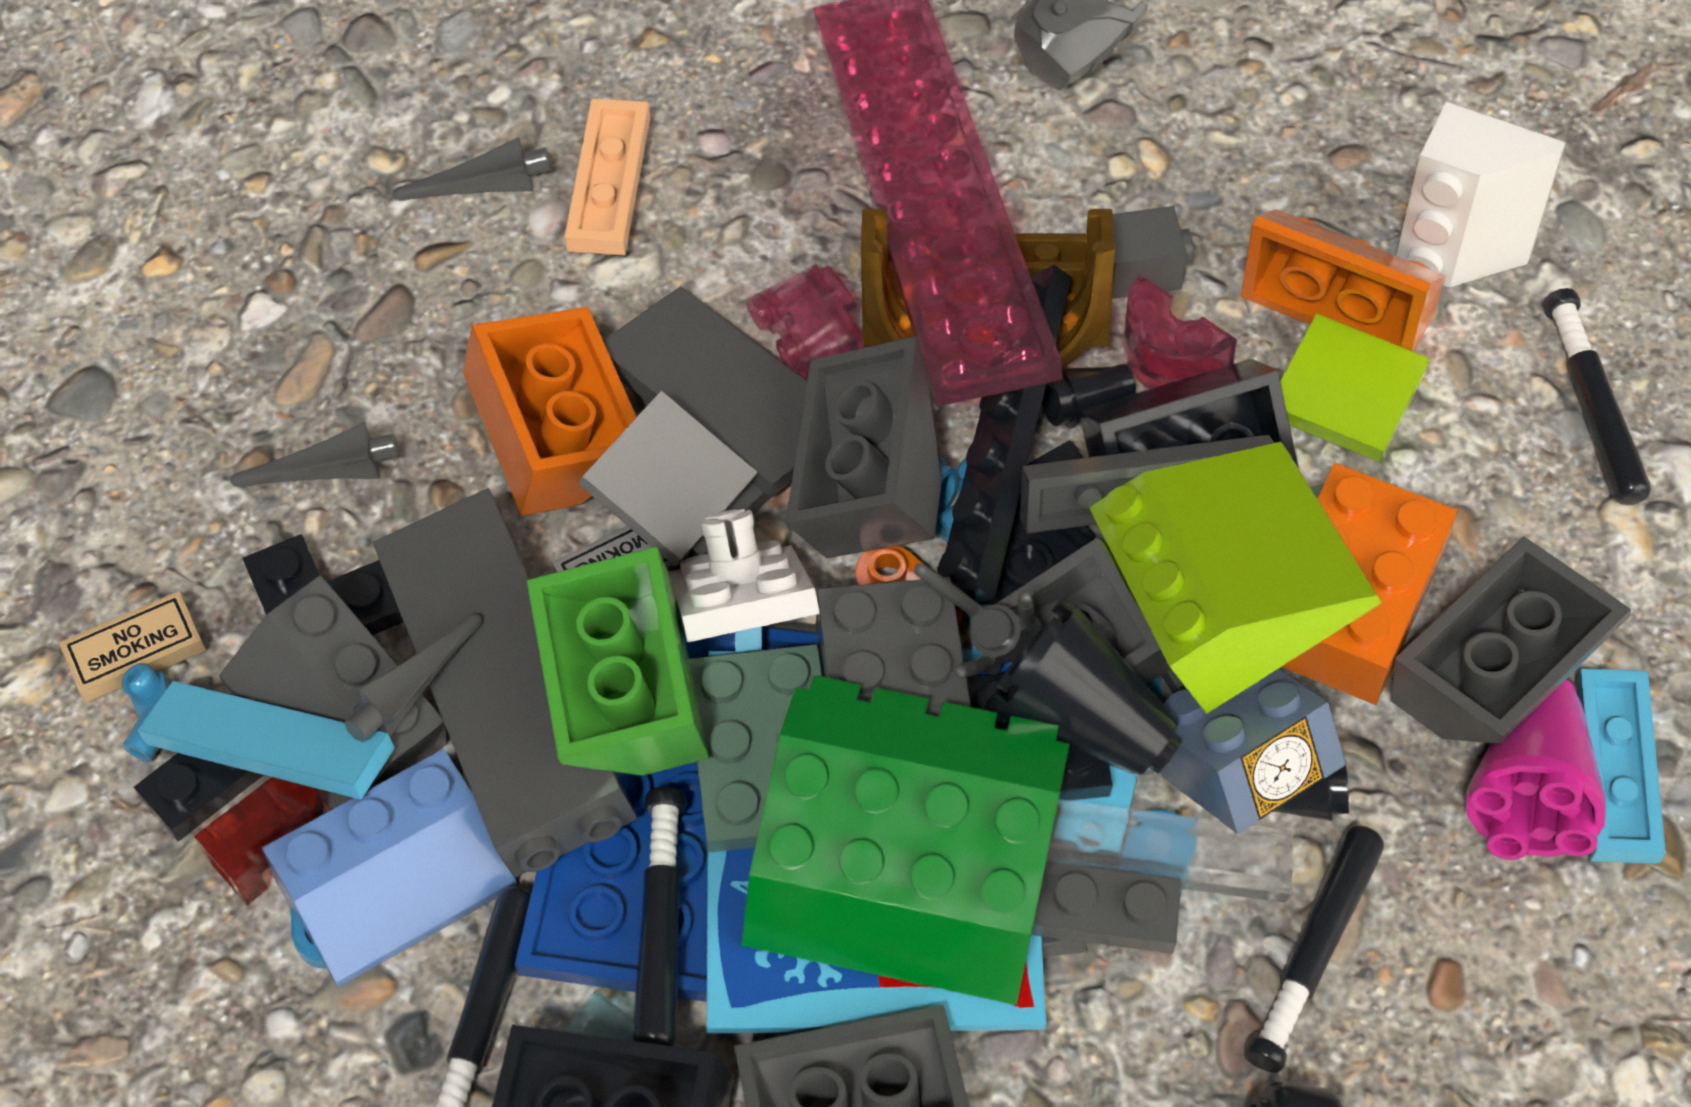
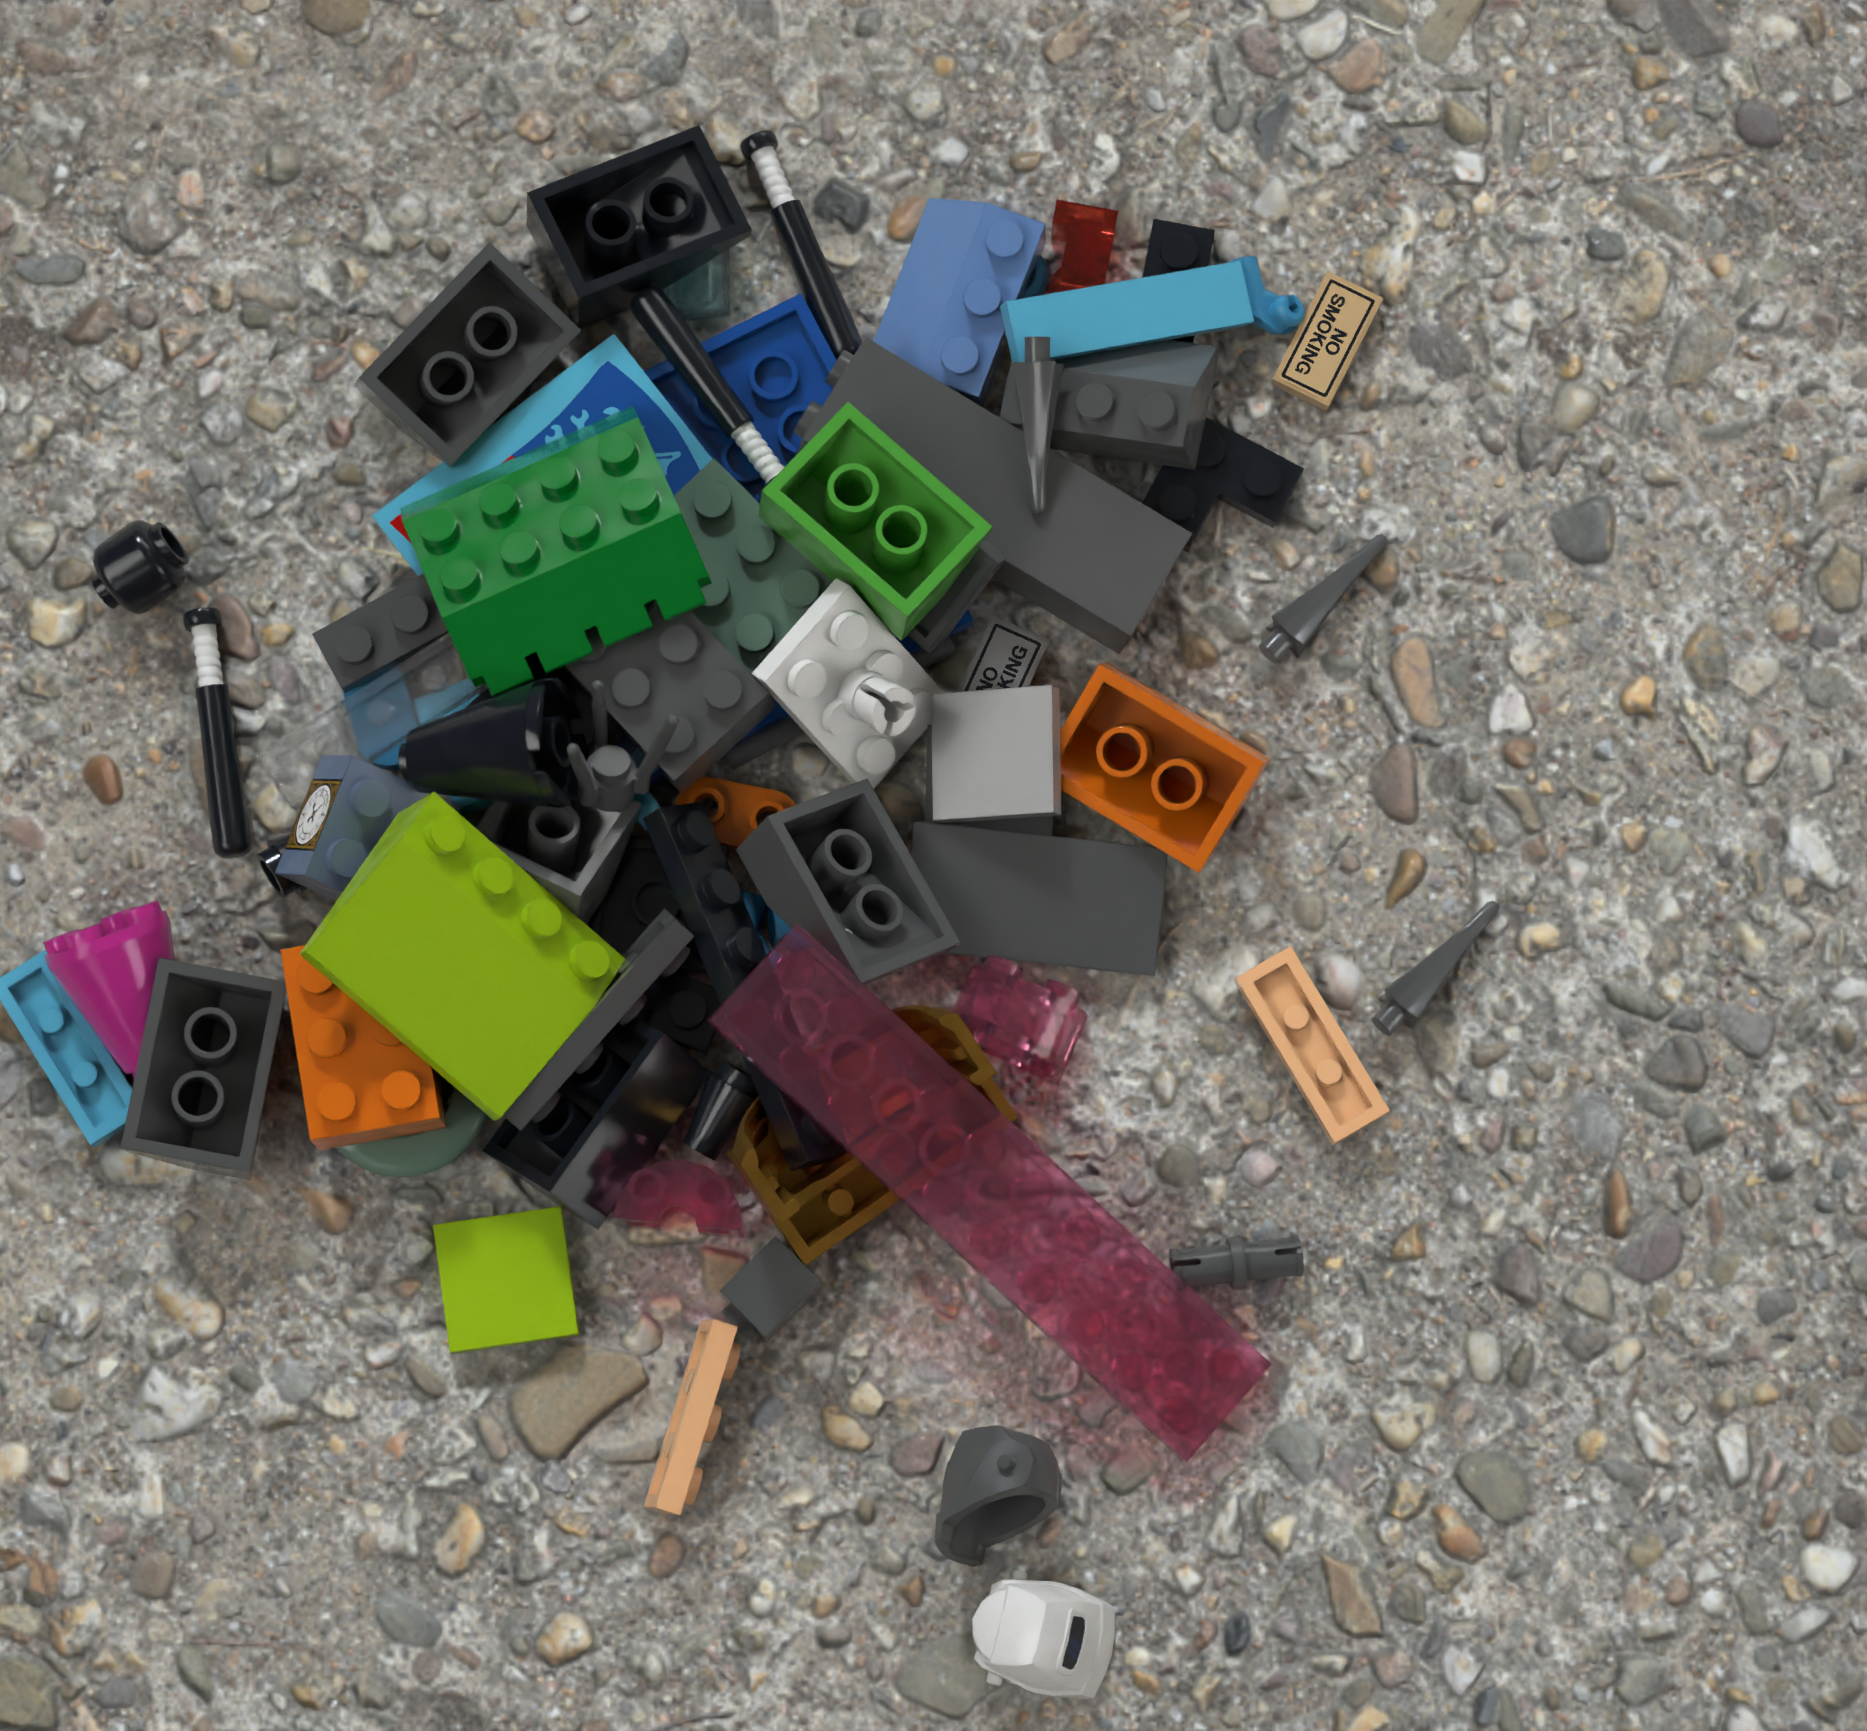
camera: 140 degrees right, 20 degrees up
(782, 81) = (1238, 1262): none -> dark grey pin
(1294, 188) = (693, 1417): none -> light nougat plate
(1314, 270) = (570, 1374): orange slope -> none
(1478, 195) = (493, 1497): white slope -> none
(1604, 418) = (261, 1392): black piece -> none

